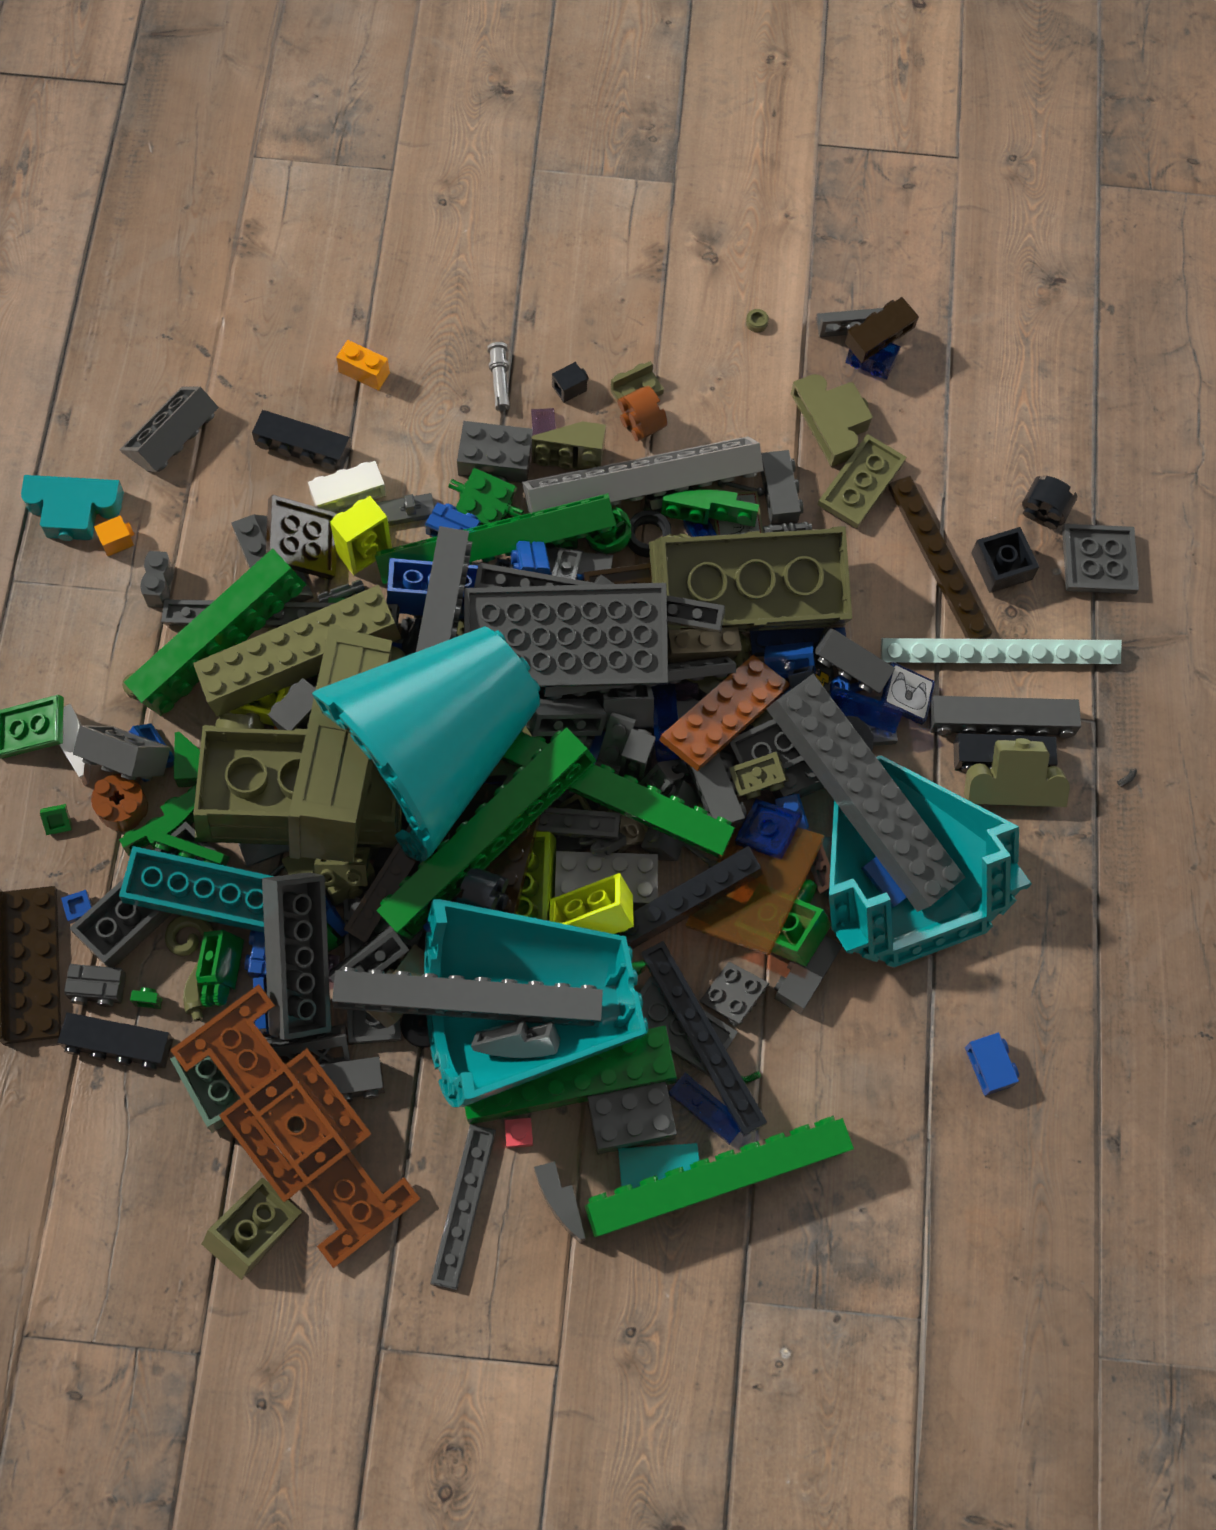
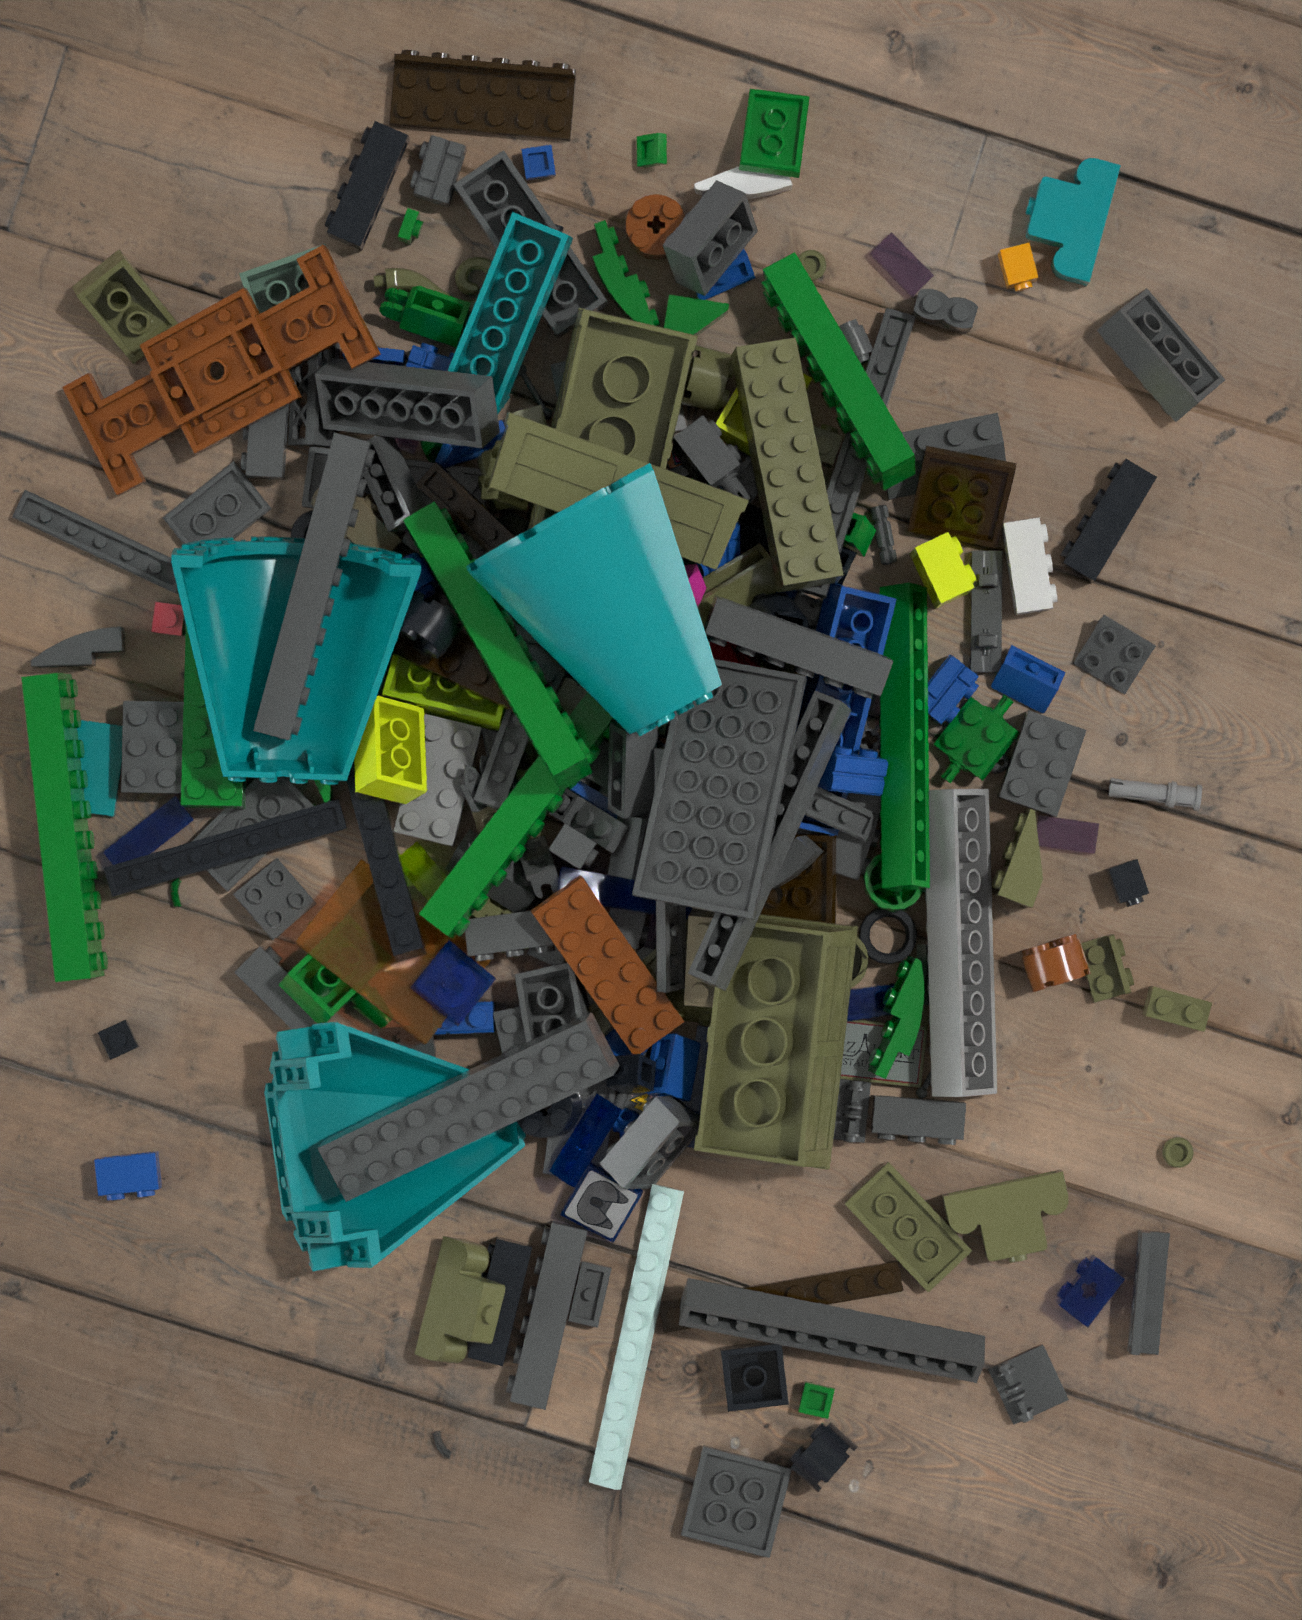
camera: 105 degrees right, 20 degrees up
(125, 620) = (901, 265): none -> clear purple tile
(186, 848) = (565, 299): green plate -> none
(363, 365) = (1204, 617): light orange brick -> none
(401, 420) = (1114, 654): none -> dark grey hinge
(419, 1111) = (218, 508): none -> dark grey tile
(433, 474) = (1028, 679): none -> blue panel
(518, 1040) = (255, 633): dark grey slope -> none
(654, 334) = (1177, 1008): none -> olive brick
(687, 867) = (422, 870): none -> clear neon green slope
(759, 775) = (517, 986): olive bracket -> none
(881, 329) = (1110, 1304): dark brown brick -> none
(883, 881) = (368, 1107): blue tile -> none
(883, 1098) = (118, 1039): none -> black plate
(952, 384) = (1028, 1384): none -> dark grey hinge
(956, 512) = (832, 1330): none -> dark grey brick
(979, 687) = (589, 1294): none -> dark grey plate
(1007, 517) = (816, 1400): none -> green plate

